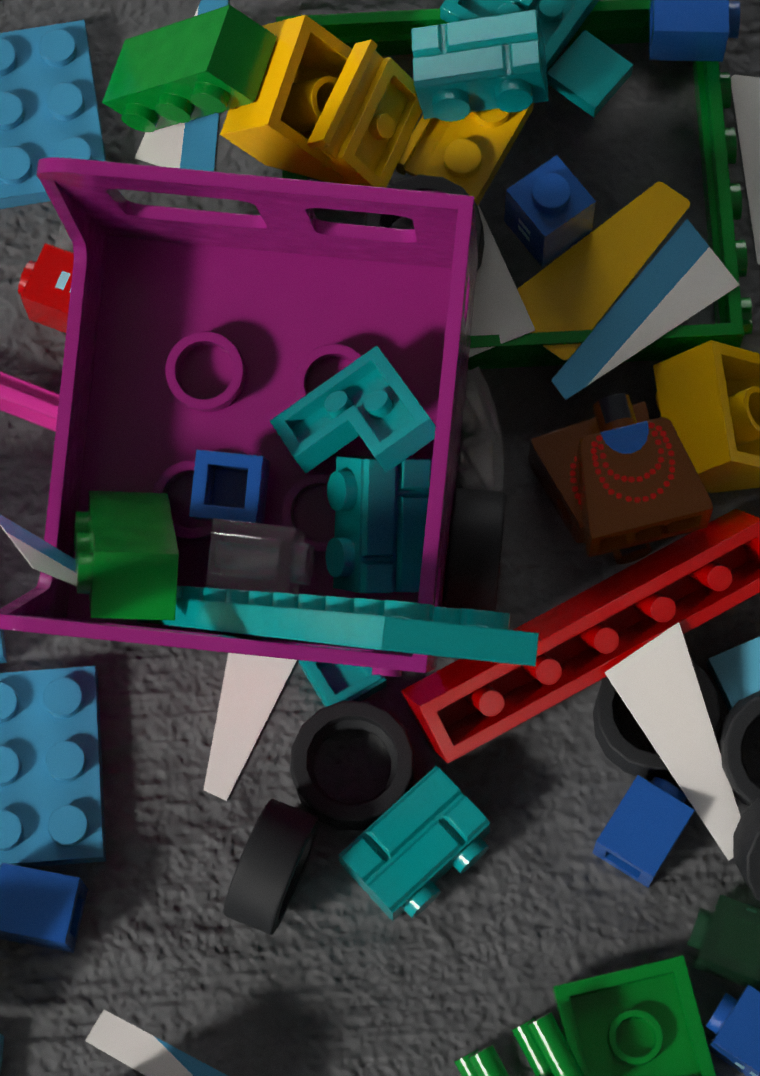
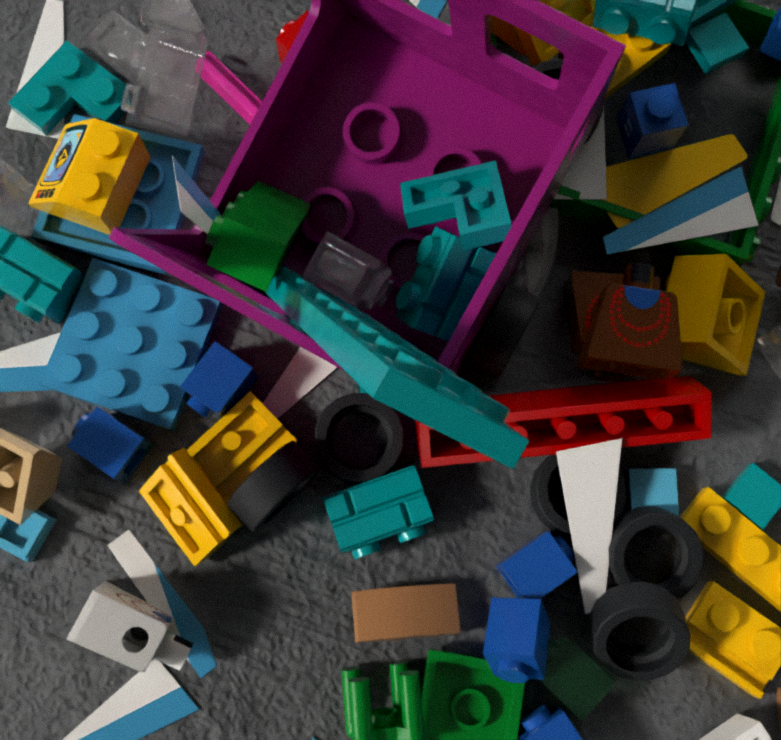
camera: 15 degrees right, 5 degrees up
(141, 771) = (218, 382): none -> blue brick
(174, 941) = (189, 507): none -> yellow plate
(200, 842) = (238, 444): none -> yellow plate
(229, 487) = (352, 215): blue brick -> none
(503, 955) = (405, 612): none -> medium nougat slope
(654, 921) = (517, 639): none -> blue brick

